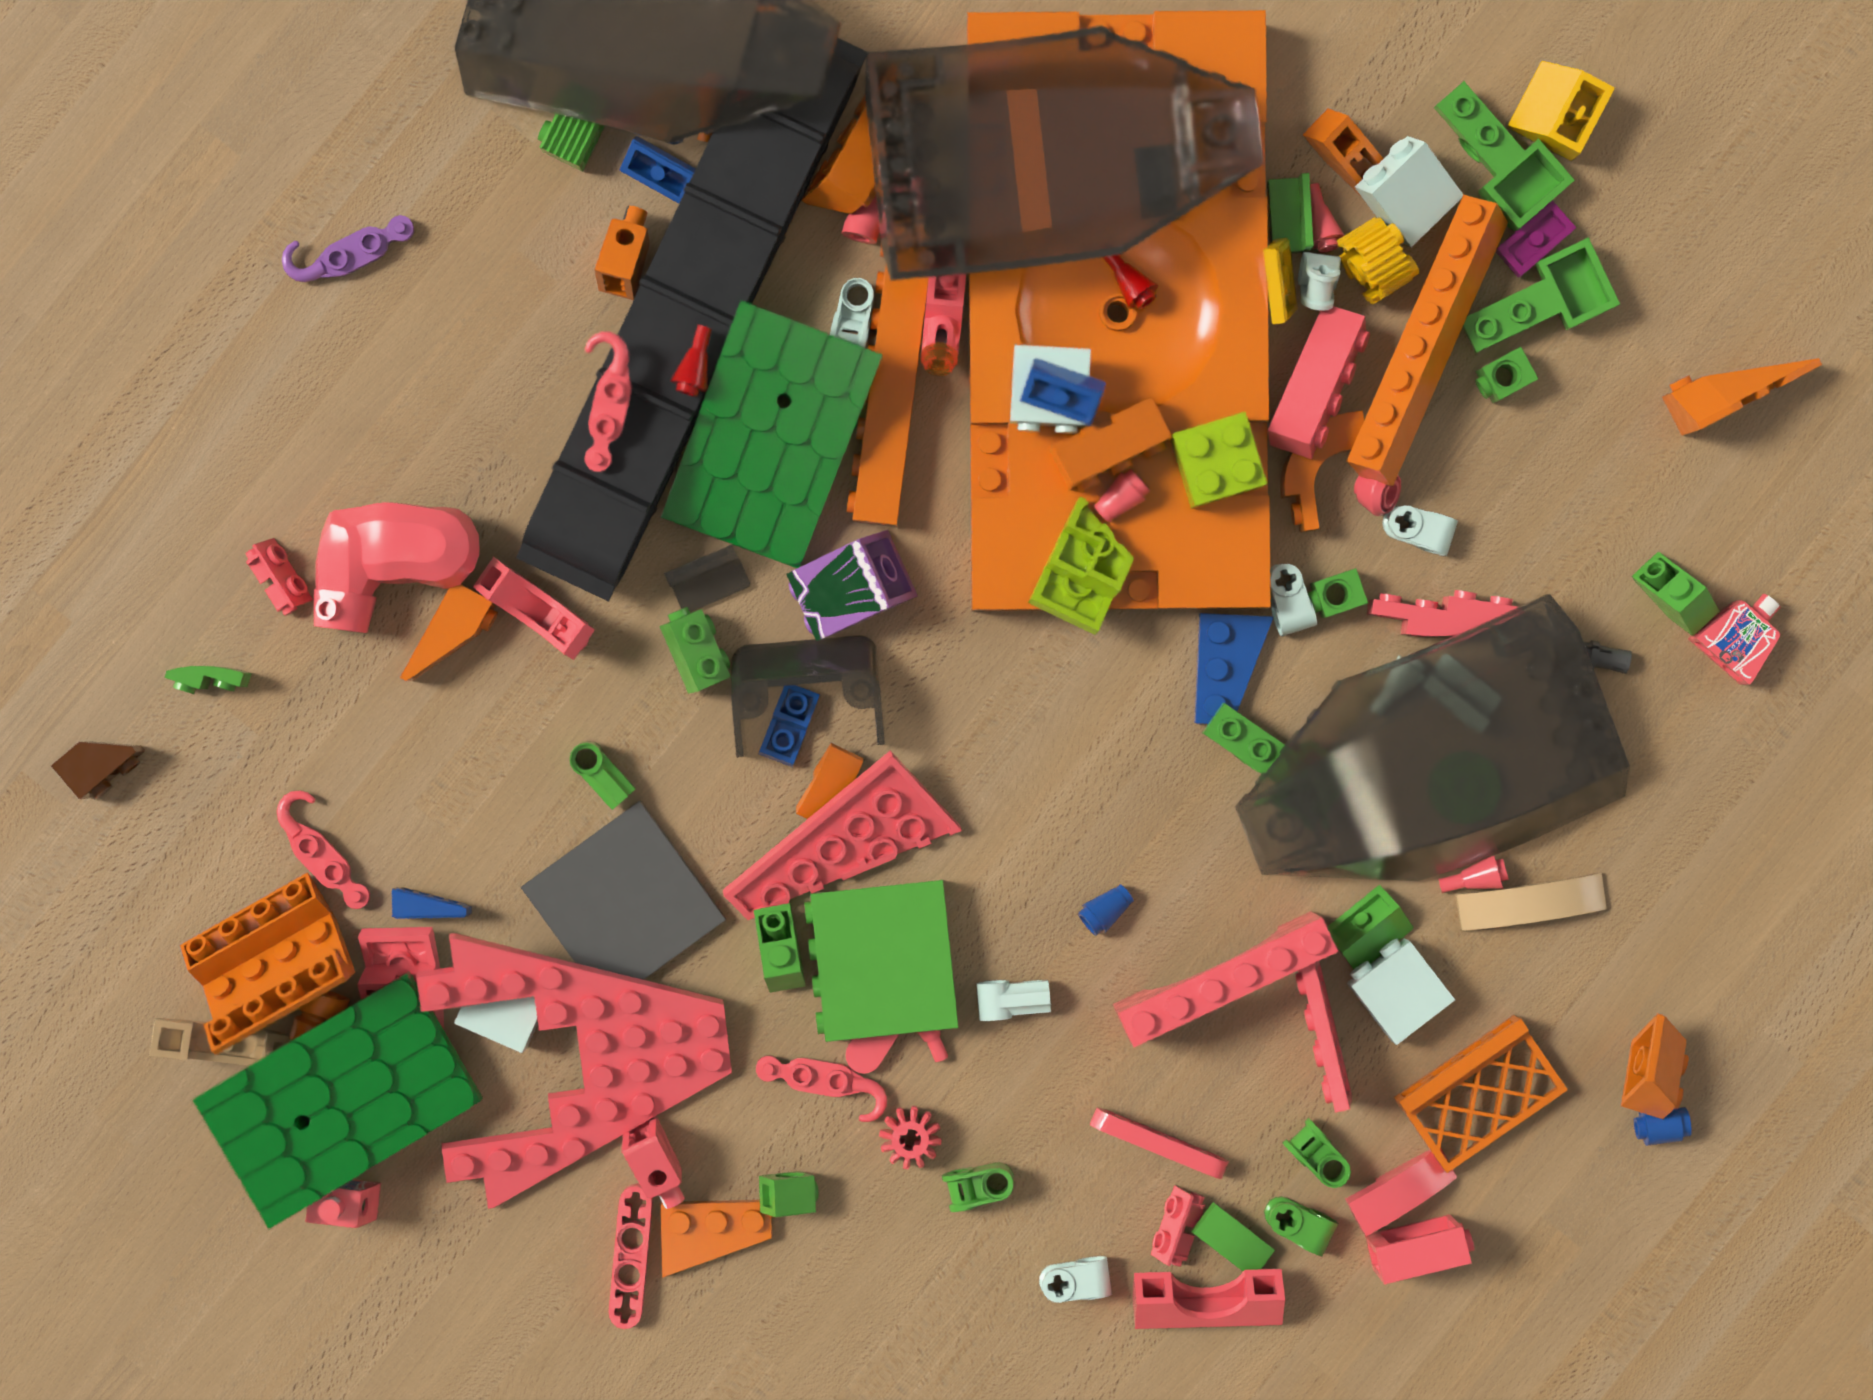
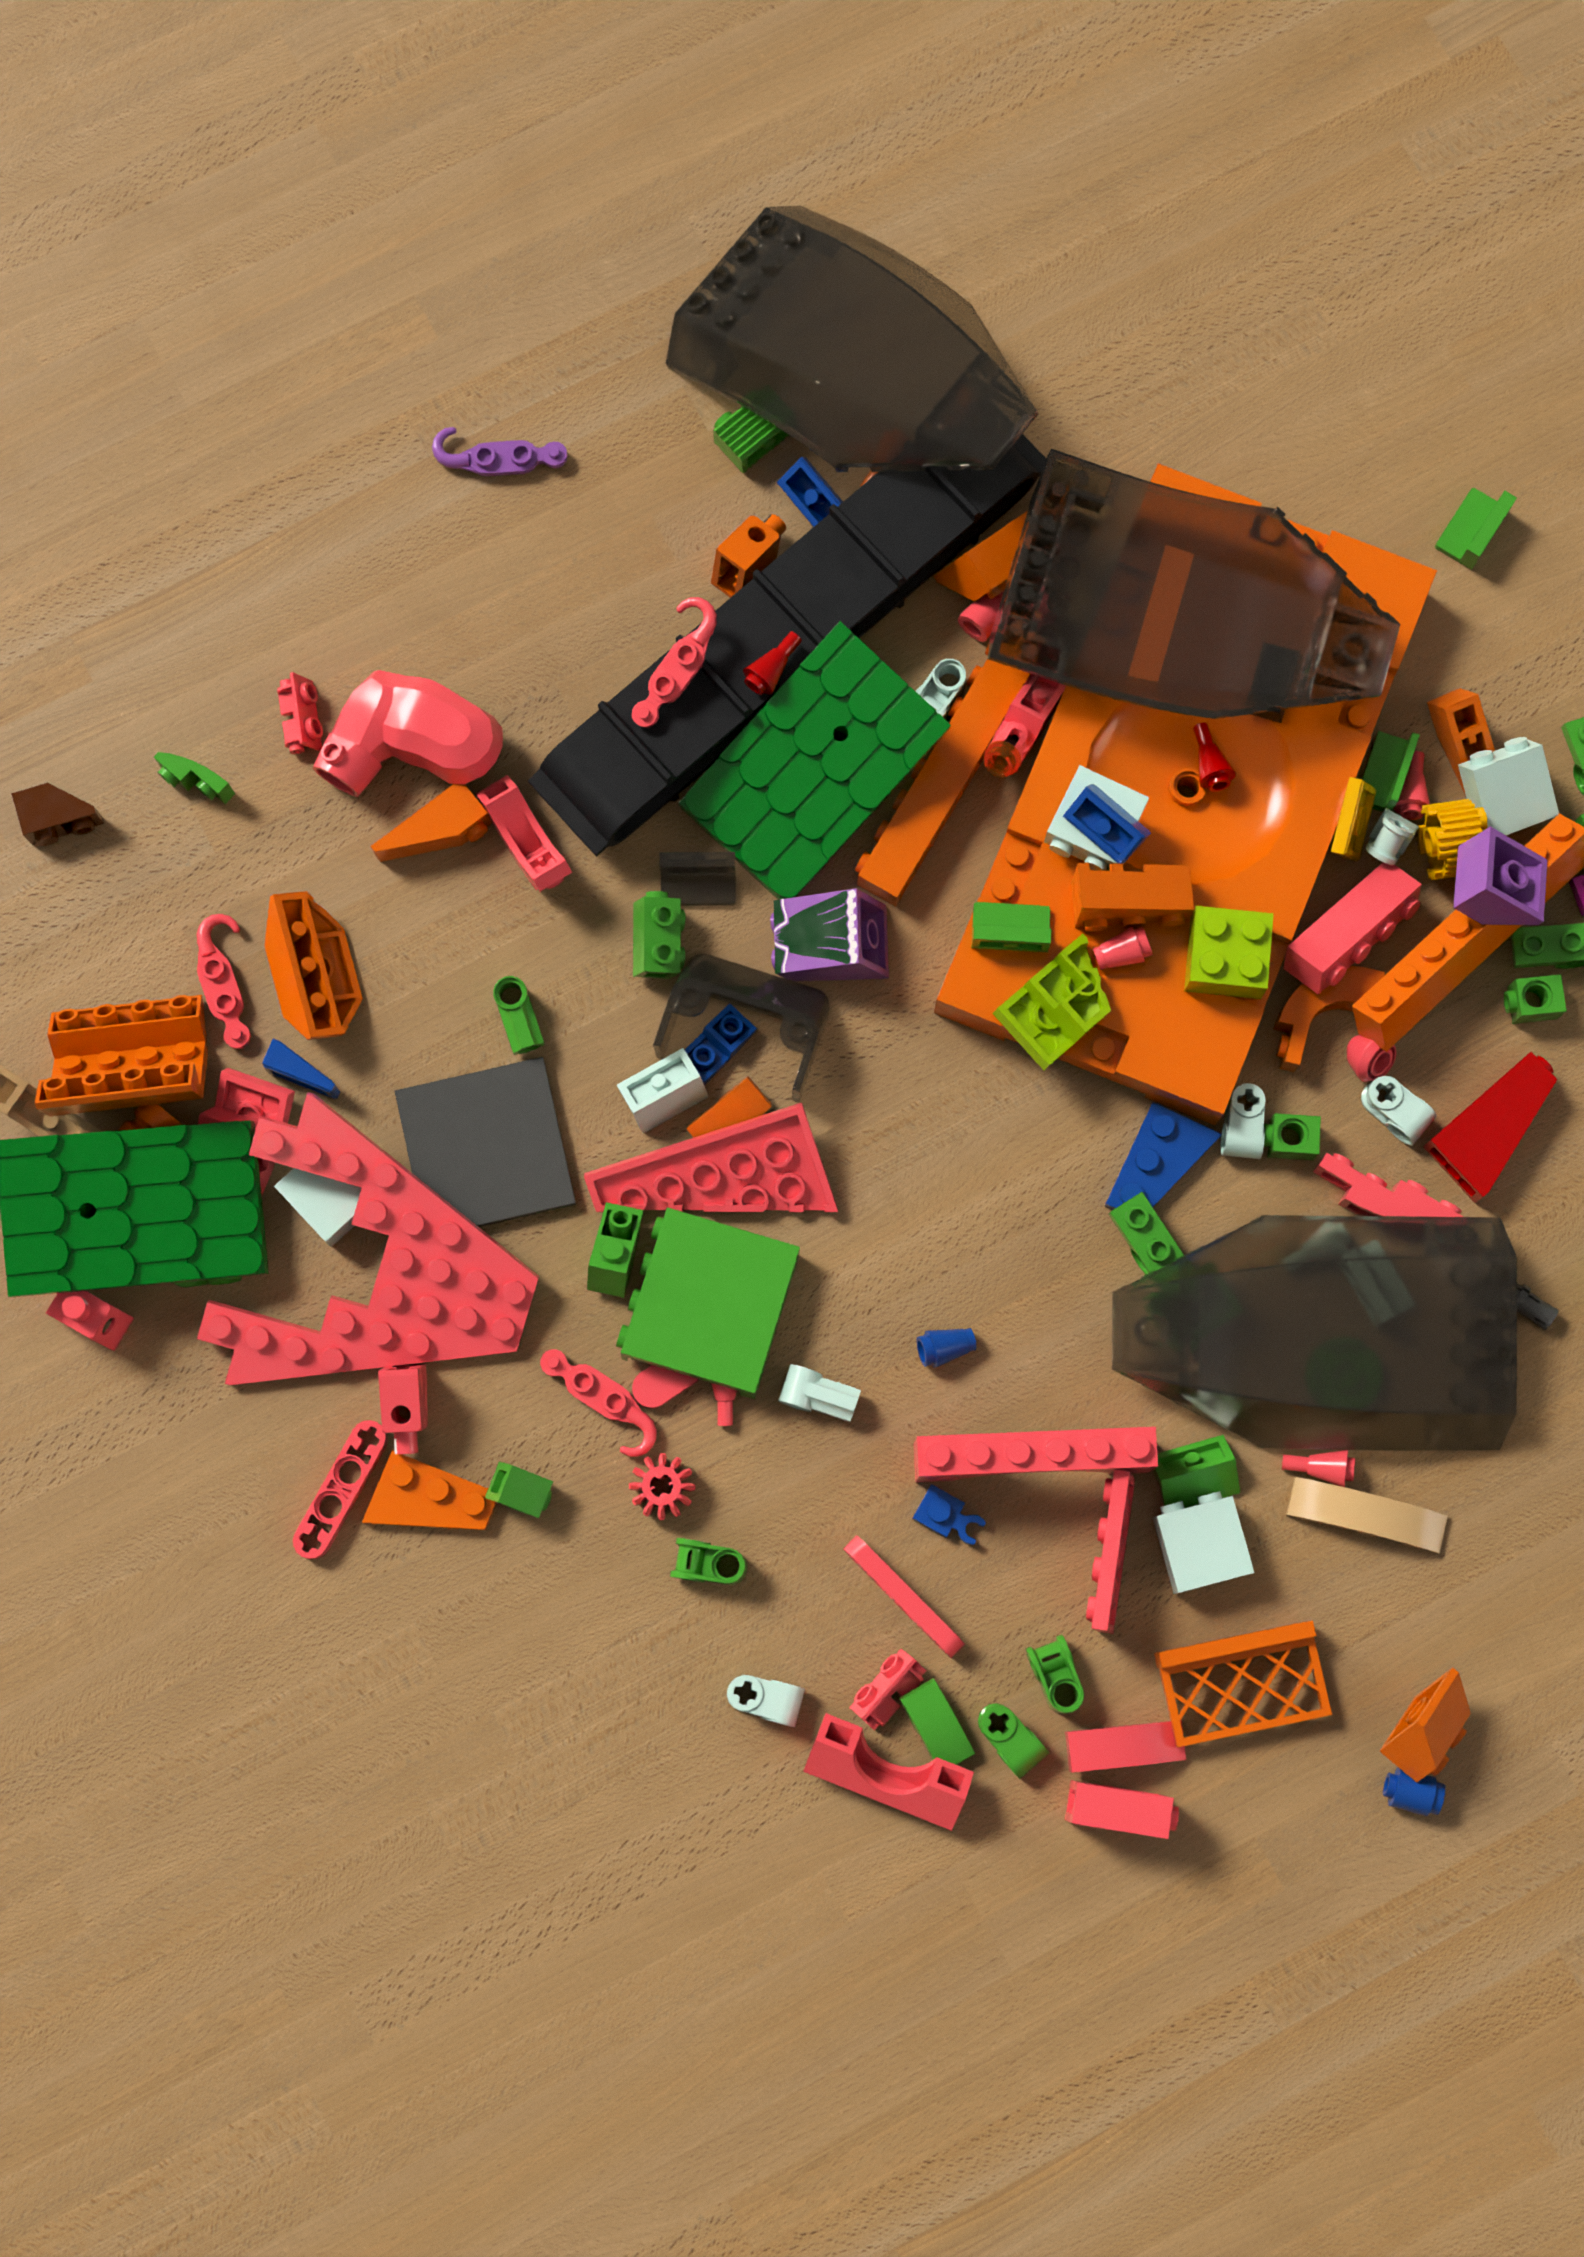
camera: 25 degrees right, 10 degrees down
(397, 809) = (311, 966): none -> orange wedge
(759, 787) = (663, 1090): none -> light aqua panel
(1012, 515) = (1011, 927): none -> bright green panel
(1162, 1056) = (942, 1513): none -> blue plate
(1436, 292) = (1500, 881): none -> medium lavender slope
(1510, 510) = (1488, 1131): none -> red slope

